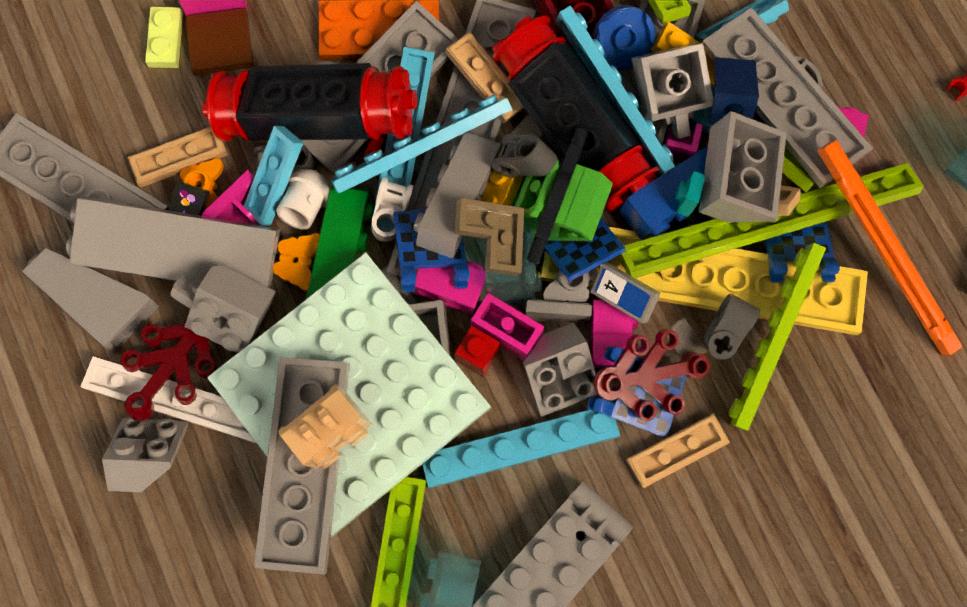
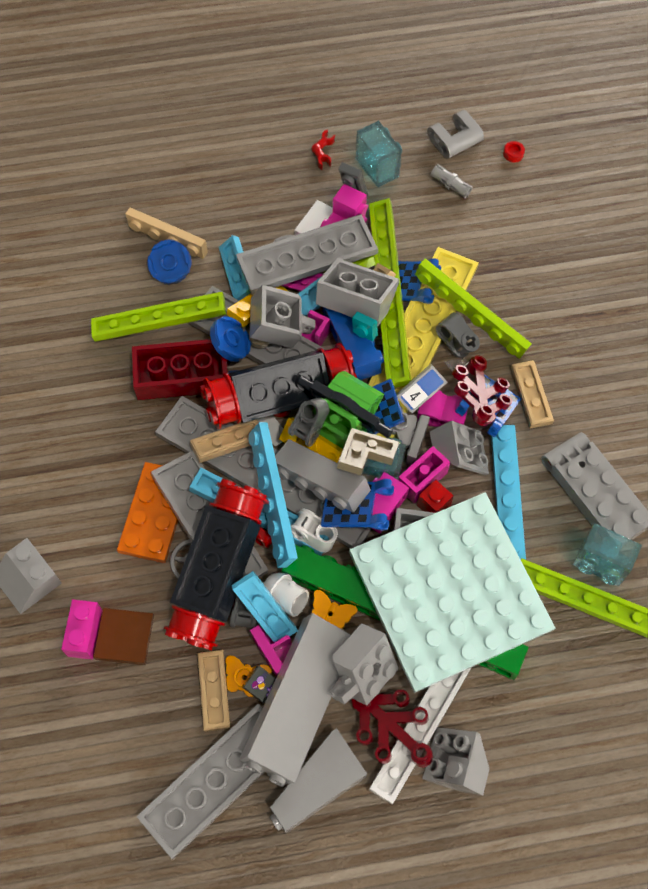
camera: 75 degrees left, 10 degrees down
(164, 37) = (104, 680): yellowish green plate -> none
(295, 497) = (503, 628): light grey plate -> none
(325, 429) = (489, 592): tan hinge -> none
(609, 79) = (240, 360): medium azure plate -> none
(734, 88) = (296, 279): dark blue piece -> none
(857, 97) = (314, 217): none -> white tile
(885, 133) = (350, 203): none -> dark pink brick
(889, 248) = (427, 227): orange piece -> none
(920, 125) = (352, 177): none -> dark grey tile

